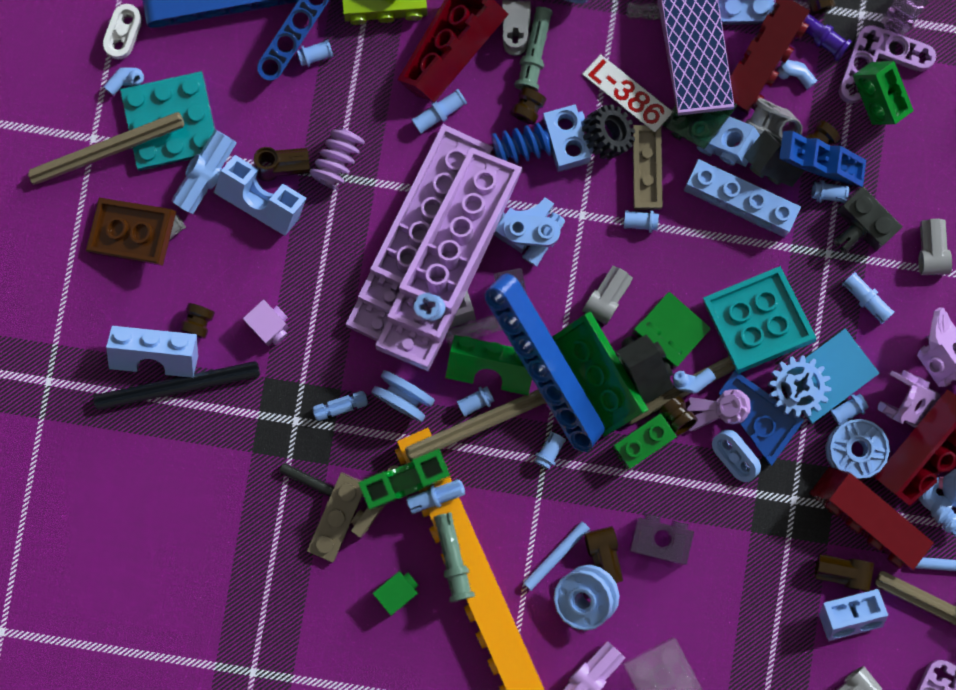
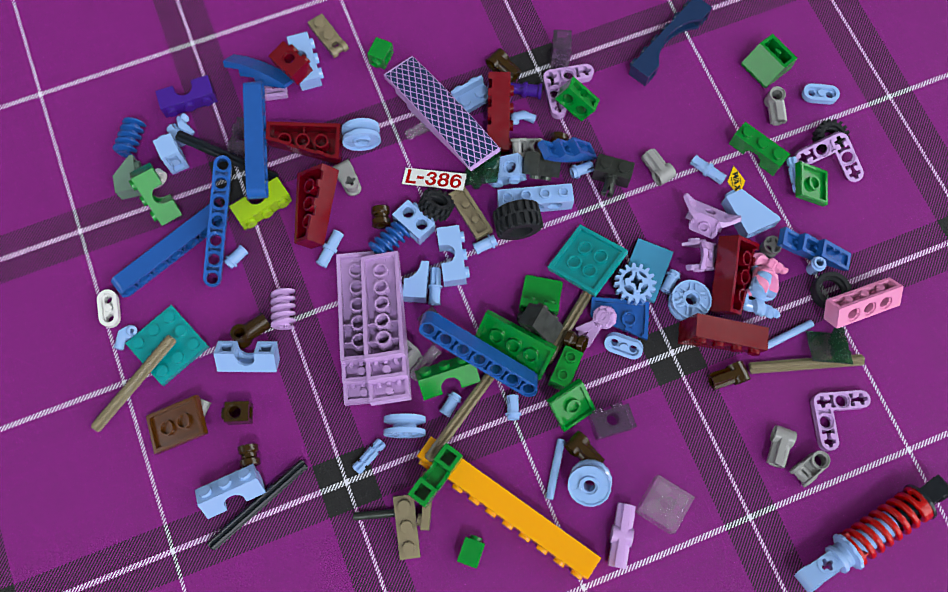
camera: 30 degrees left, 10 degrees down
(203, 171) = (204, 362): light blue piece -> none
(219, 268) = (245, 416): none -> dark brown brick
(267, 323) = (294, 431): lavender brick -> none
(435, 496) = (461, 475): light blue axle -> none
(437, 311) = (383, 359): light blue bush -> none
(456, 571) = (501, 514): sand green pin -> none
(531, 231) = (426, 284): light blue plate -> none
(532, 62) = (368, 191): sand green pin -> none
(581, 235) = (451, 239): none -> light blue arch
(605, 299) = (492, 298): light grey piece -> none
(622, 491) = (571, 405): none -> green plate
(691, 383) = (572, 318): light blue arm -> none
(700, 215) = (517, 219): none -> black tyre
(853, 615) = (751, 397): light blue brick -> none
(868, 298) = (640, 214): light blue pin -> none

